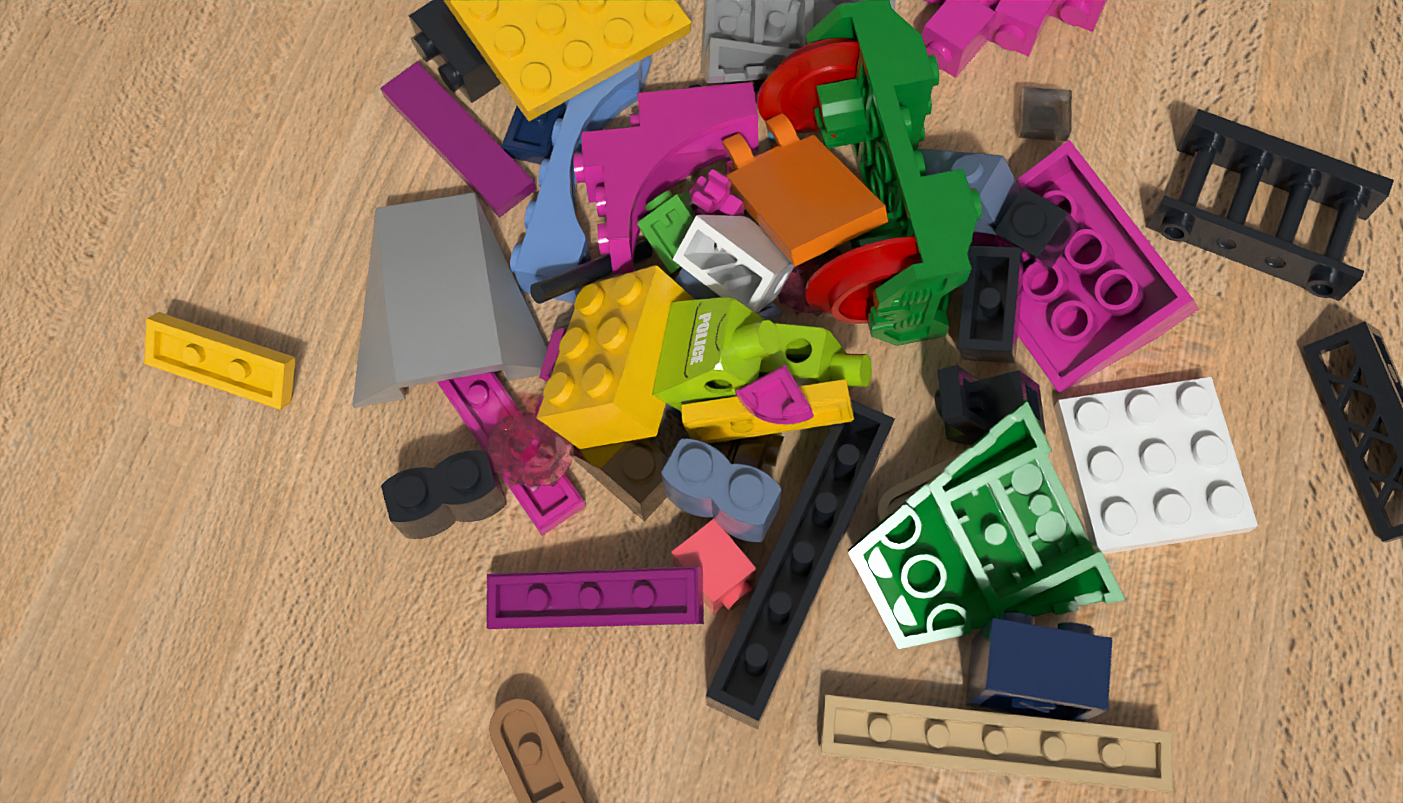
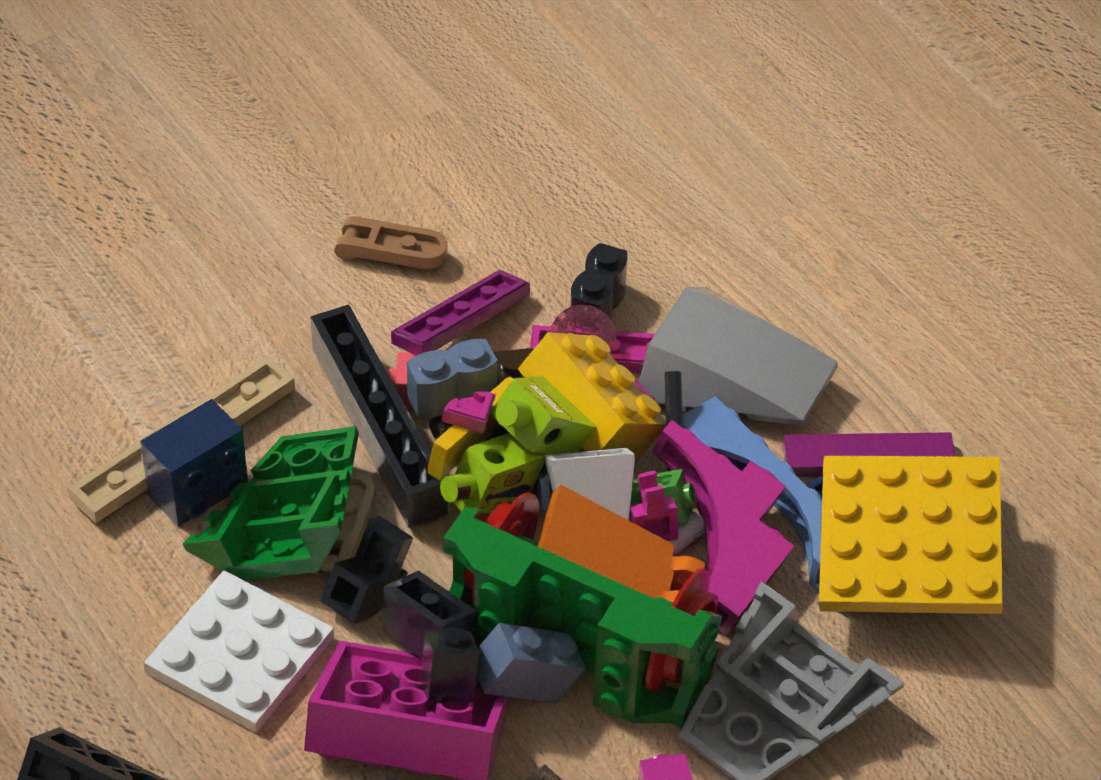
camera: 125 degrees right, 20 degrees down
(219, 360) = (802, 246): yellow plate -> none

